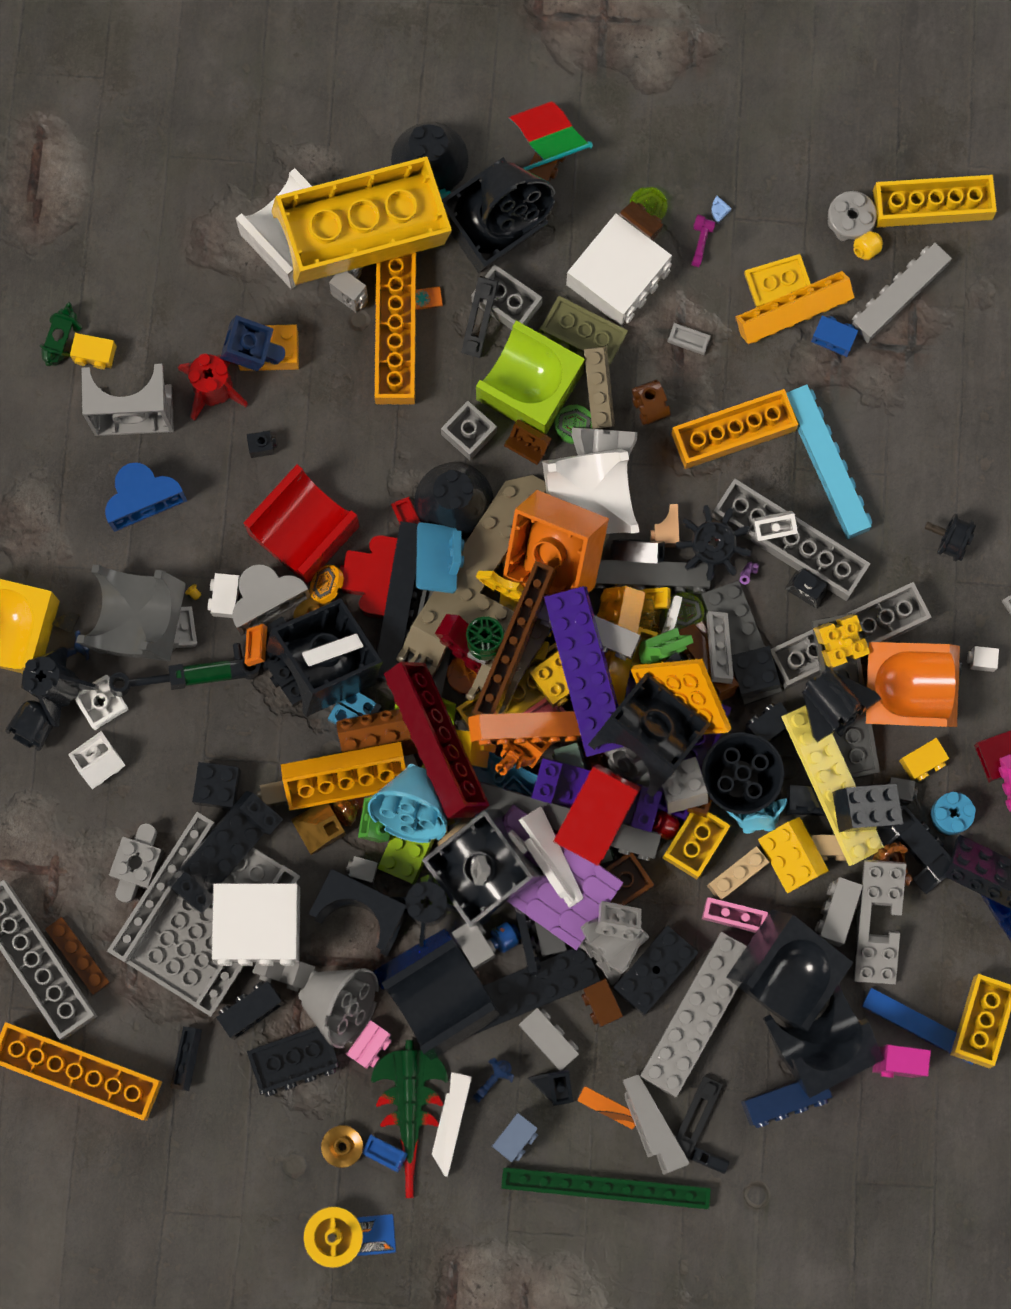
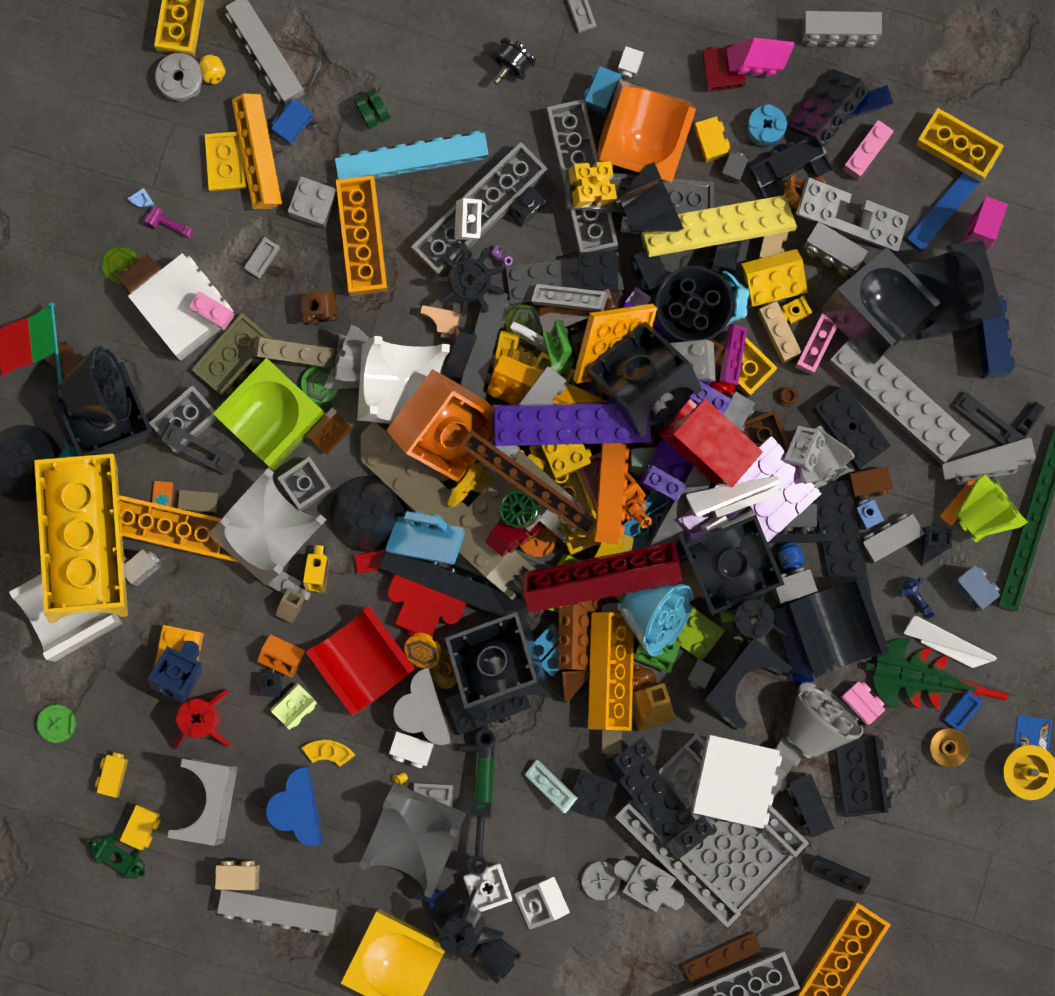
camera: 75 degrees left, 5 degrees up
(37, 502) = (277, 910): none -> light grey brick
(62, 453) = (237, 876): none -> tan brick
(130, 813) = (600, 881): none -> light grey tile
(139, 312) = (112, 775): none -> yellow brick
(179, 249) = (56, 723): none -> bright green tile
(207, 516) = (328, 750): none -> yellow tile
(215, 741) = (550, 786): none -> light aqua tile
(243, 470) = (293, 706): none -> yellowish green bracket
(255, 645) = (468, 729): orange tile -> none
(291, 446) = (281, 656): none -> orange brick
(325, 740) = (573, 681): none -> reddish brown slope
(332, 649) = (495, 655): white sticker -> none
(343, 443) = (290, 605): none -> dark tan brick
(365, 434) = (285, 581): none -> light grey plate
(384, 461) = (314, 576): none -> yellow torso
(412, 398) = (264, 529): none -> light grey piece
(429, 333) = (198, 501): none -> dark tan tile
(480, 870) = (737, 562): light grey plate -> none
(569, 1008) = (868, 513): none -> medium blue brick
(600, 1132) = (988, 510): none -> lime brick
(619, 294) = (211, 310): none -> bright pink brick
(673, 898) = (788, 396): none -> reddish brown plate
(700, 827) = (733, 354): none -> magenta plate
(737, 721) = (638, 298): none -> lavender plate
(756, 373) = (312, 202): none -> light grey brick
(764, 894) = (804, 310): none -> yellow brick
(867, 409) = (371, 108): none -> dark green wheel
(867, 808) = (749, 199): black brick -> none
(943, 631) = (600, 95): none -> dark azure brick
(954, 925) = (868, 150): none -> bright pink brick

